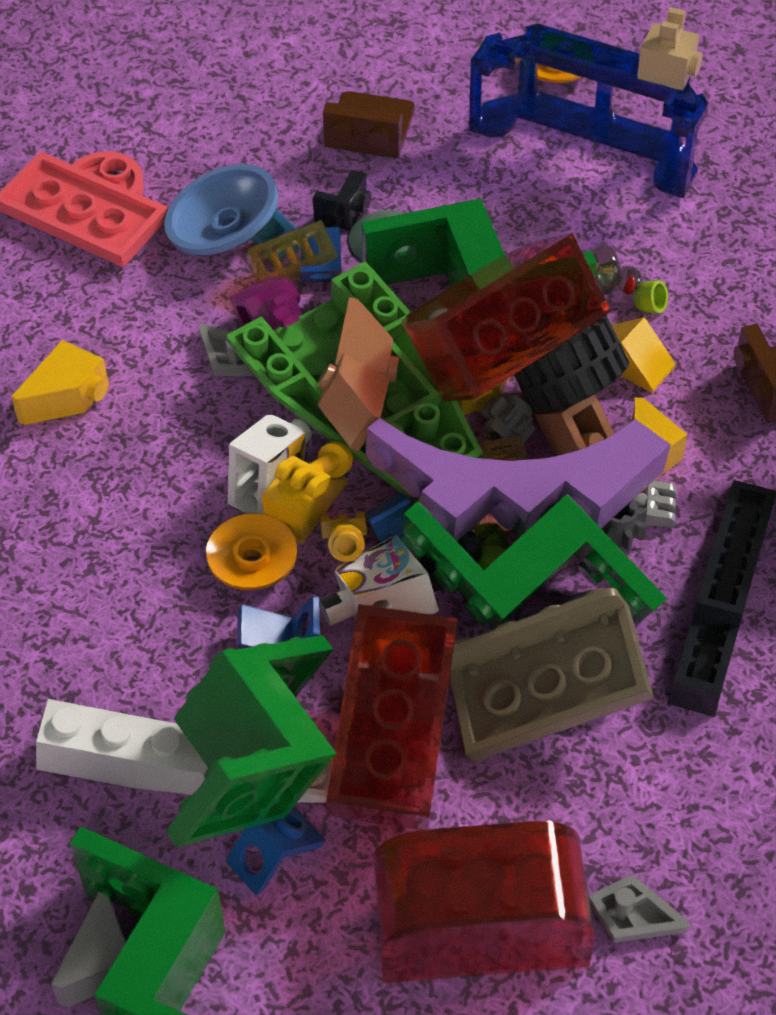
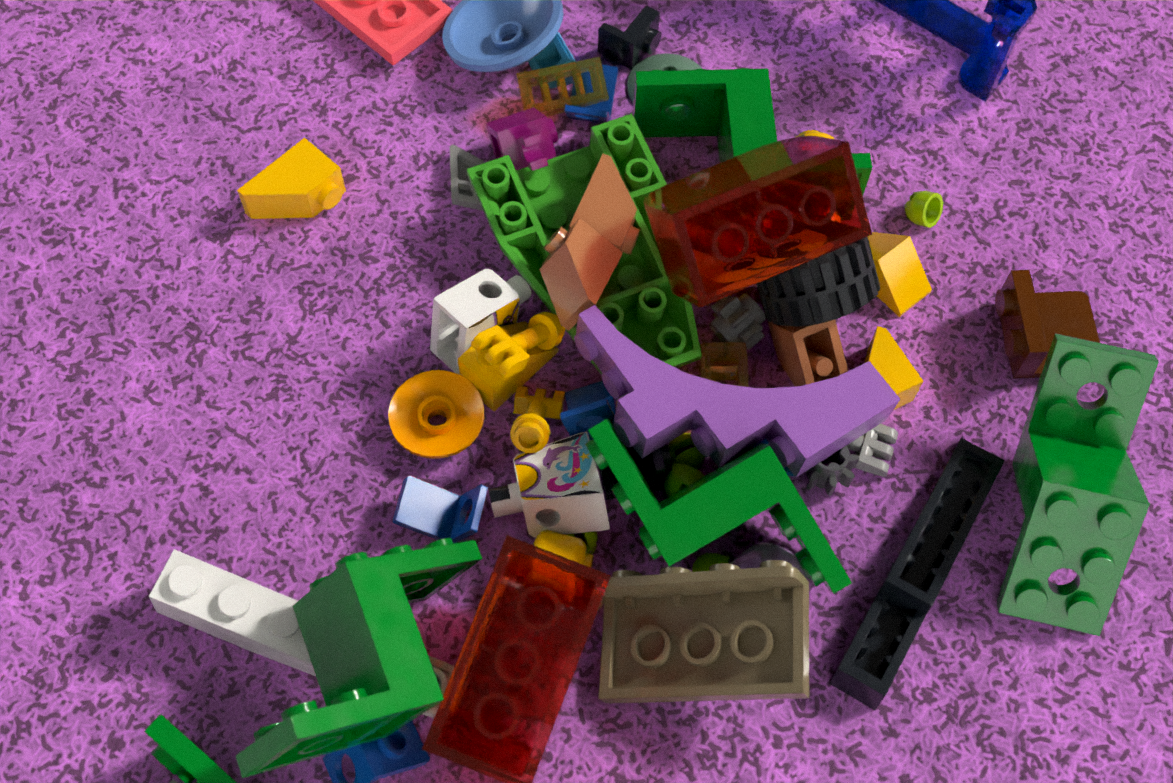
camera: 10 degrees right, 10 degrees up
(610, 275) = (886, 172): clear smoke animal -> none

